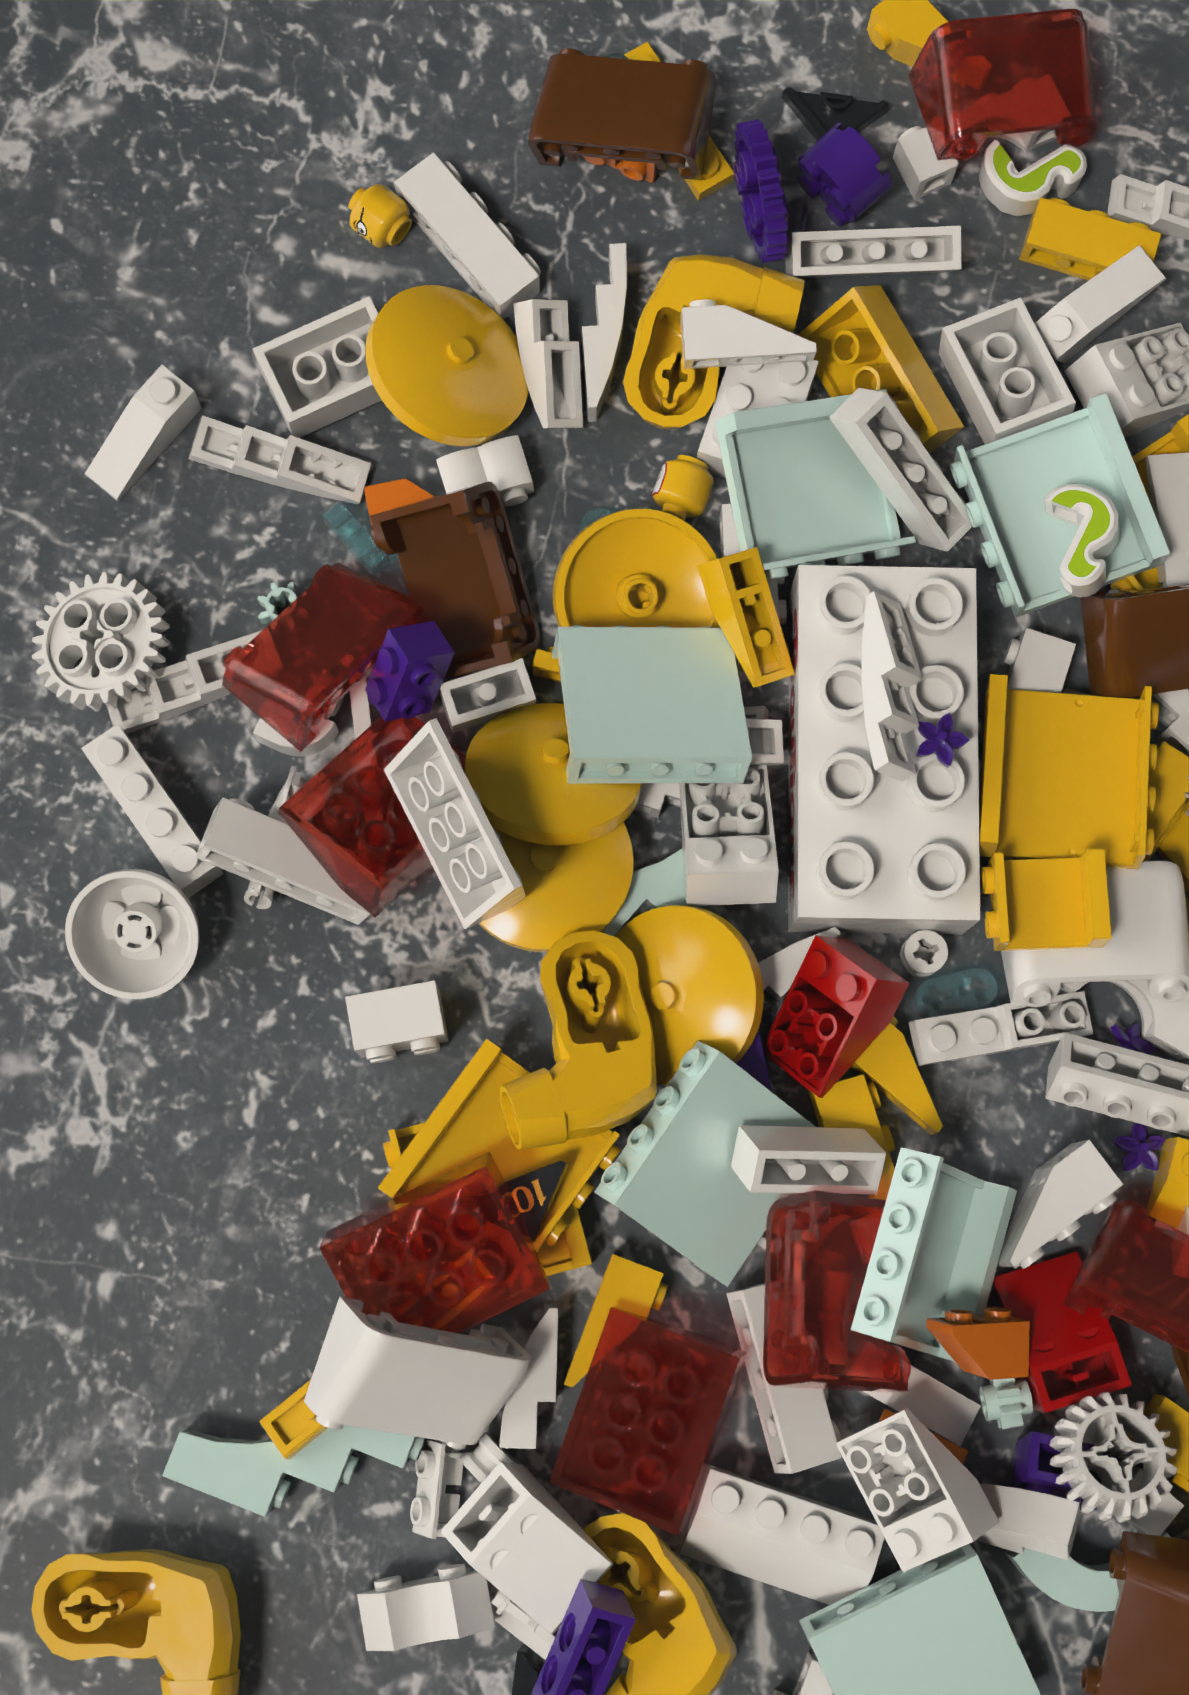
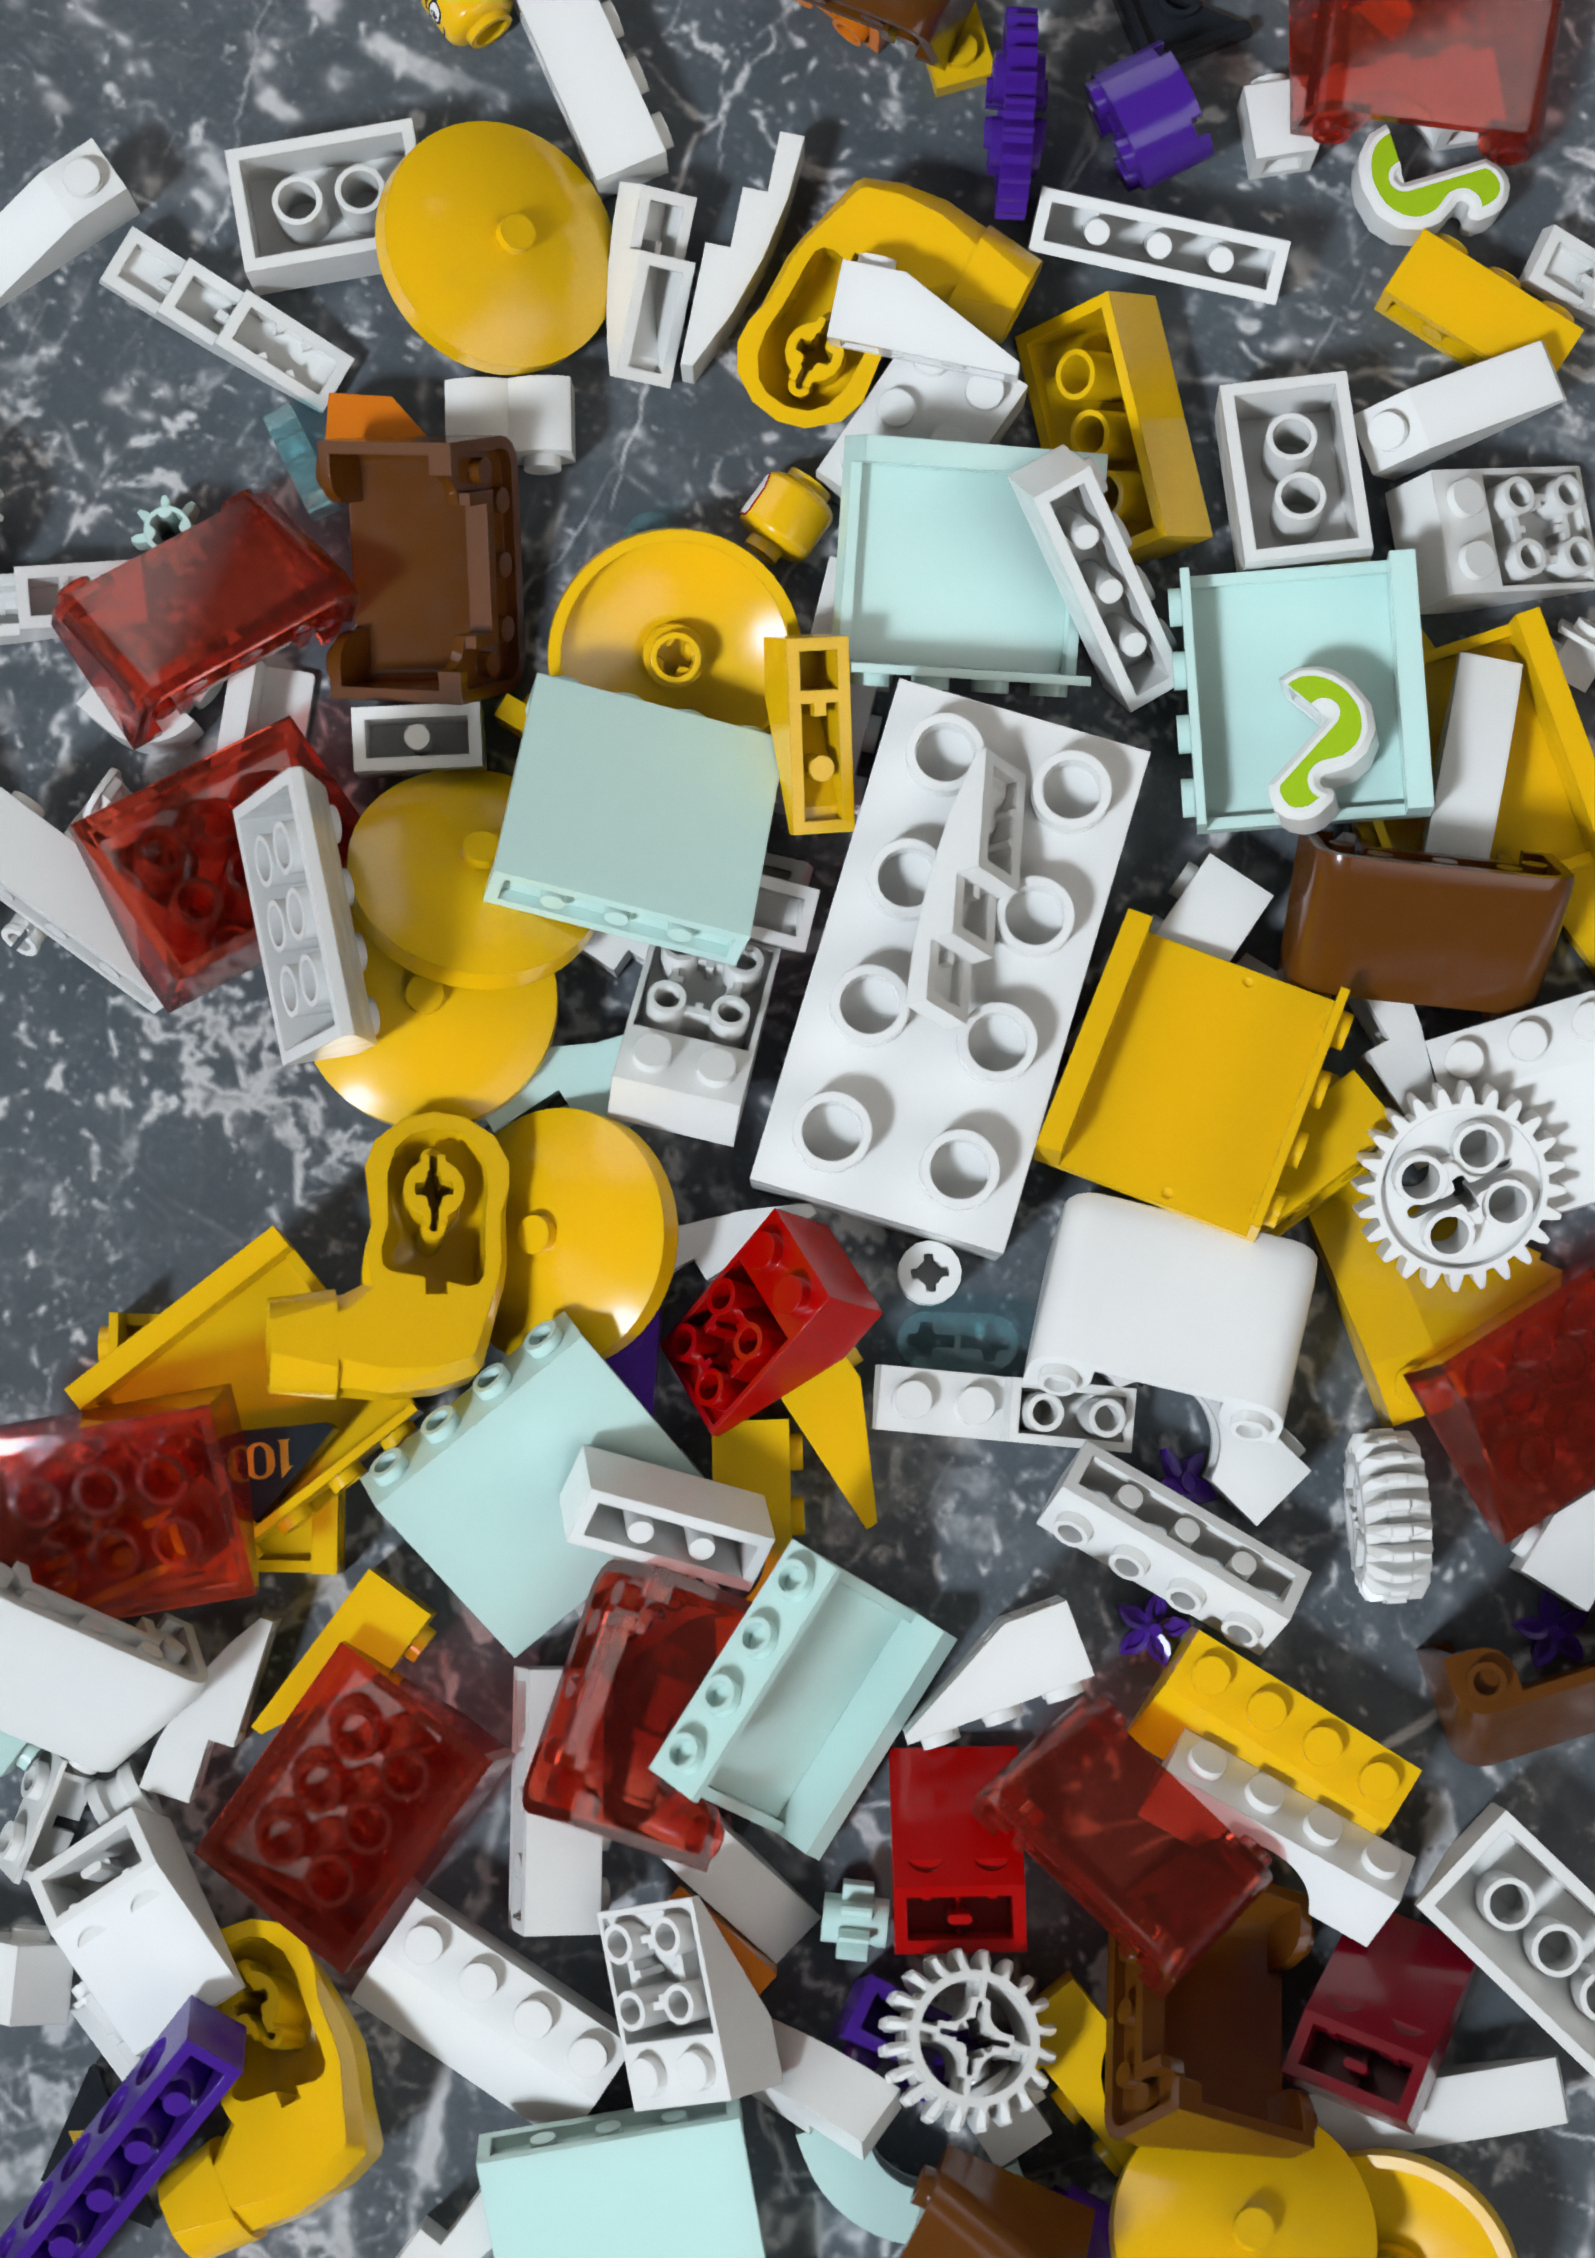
camera: 20 degrees right, 5 degrees up
(397, 1021) = (163, 1162): white brick -> none
(409, 671) = (311, 678): dark purple brick -> none
(940, 740) = (1018, 985): dark purple plant -> none
(984, 1344) = (843, 1837): orange slope -> none
(1047, 902) = (1104, 1254): yellow panel -> none

